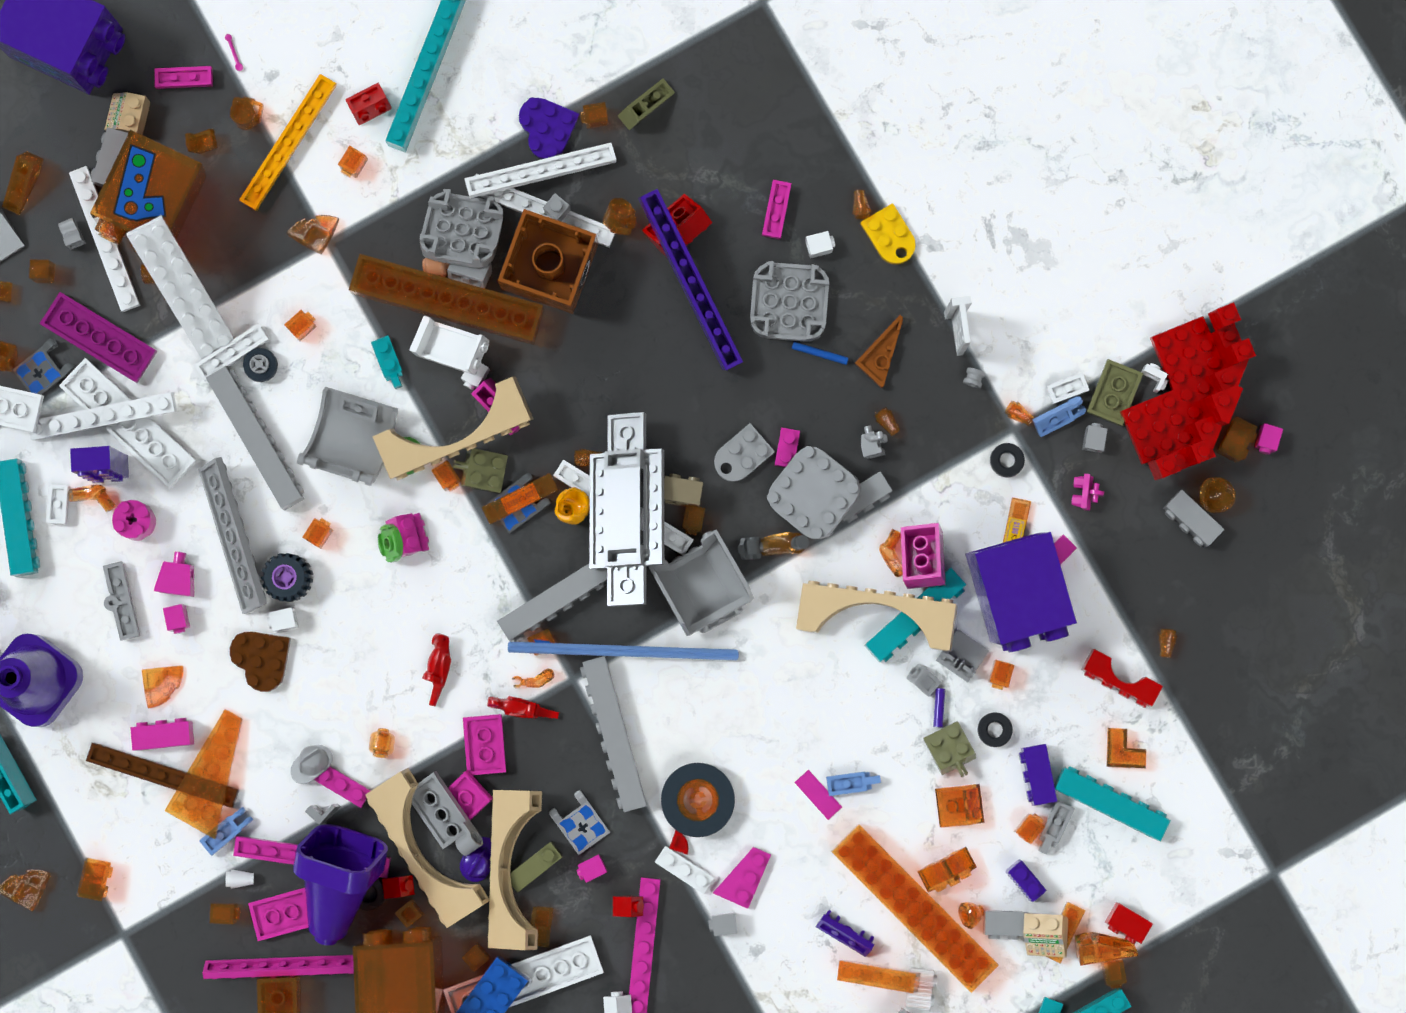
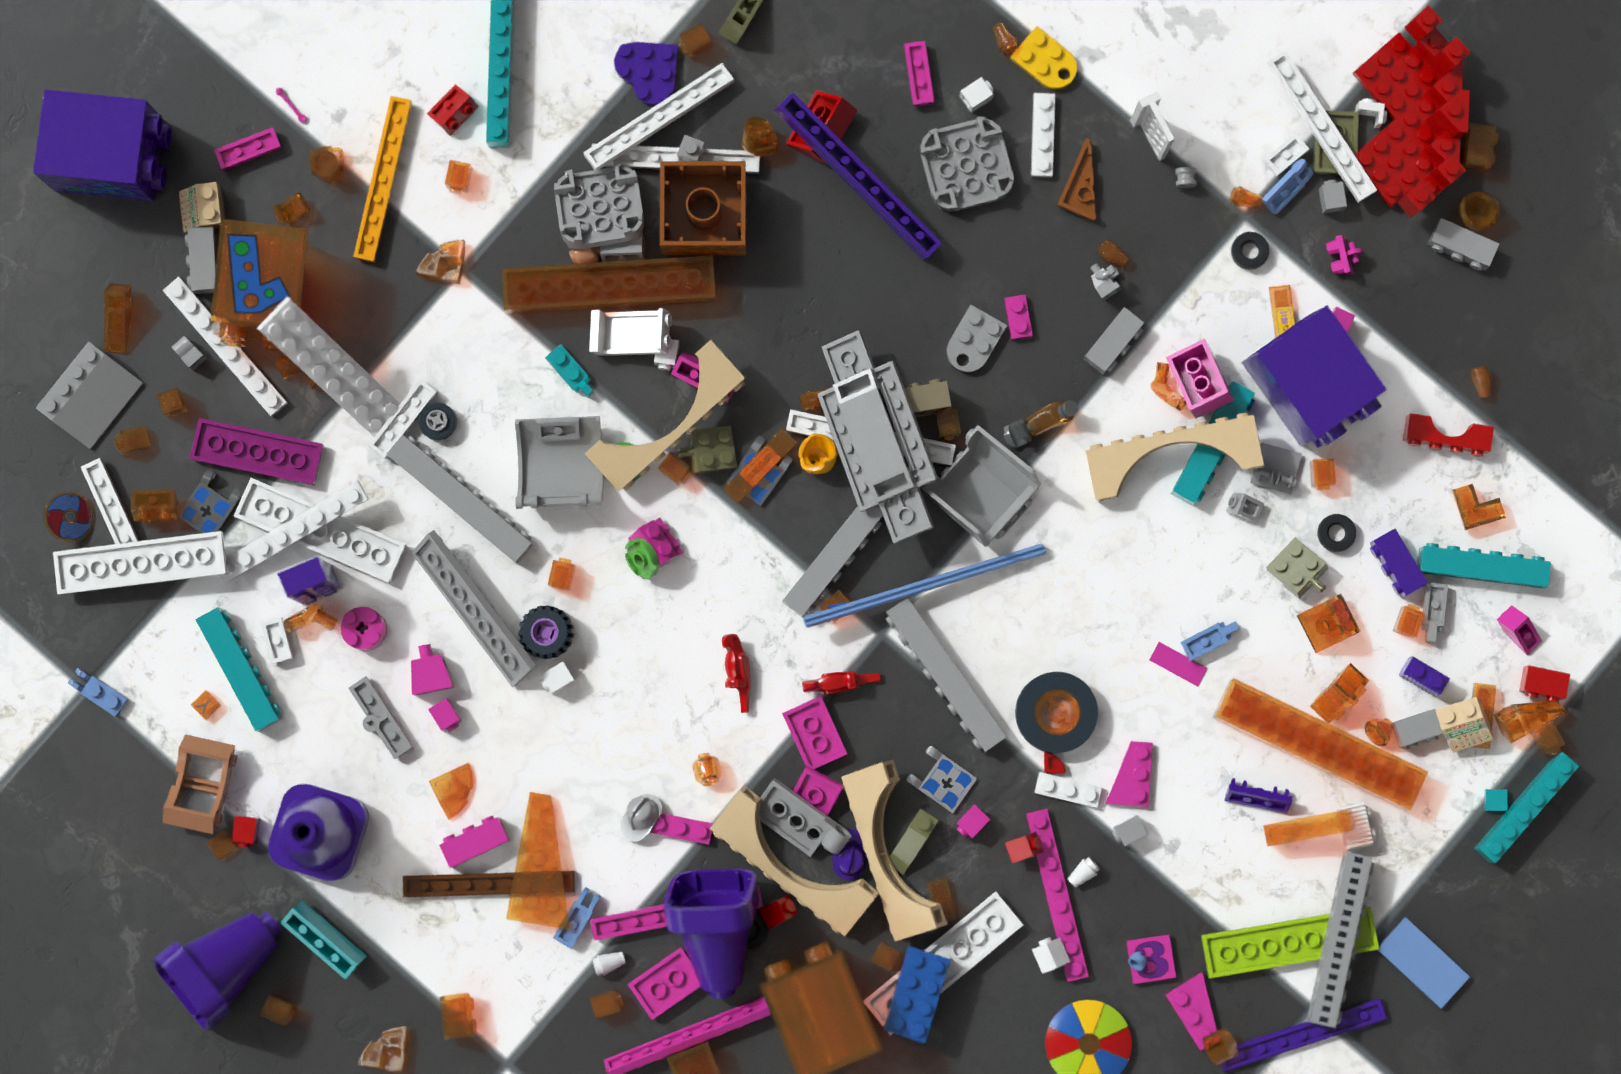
camera: 20 degrees left, 0 degrees up
(262, 658) = (549, 725): reddish brown plate -> none
(301, 324) = (465, 364): clear orange brick -> none
(320, 816) = (670, 867): light grey panel -> none
(409, 913) = (800, 935): clear orange brick -> none
(536, 682) = (846, 648): clear orange arm -> none
(672, 945) = (1084, 871): none -> white cone
(814, 493) = (1064, 353): light grey plate -> none
(820, 353) = (1014, 207): blue bar -> none
(864, 299) = (1043, 135): none -> white plate
(939, 707) = (1271, 530): dark purple piece -> none
(1106, 374) = (1321, 126): none -> white plate
(1123, 869) = (1519, 629): none -> dark pink slope
(1268, 439) = (1510, 135): dark pink brick -> none

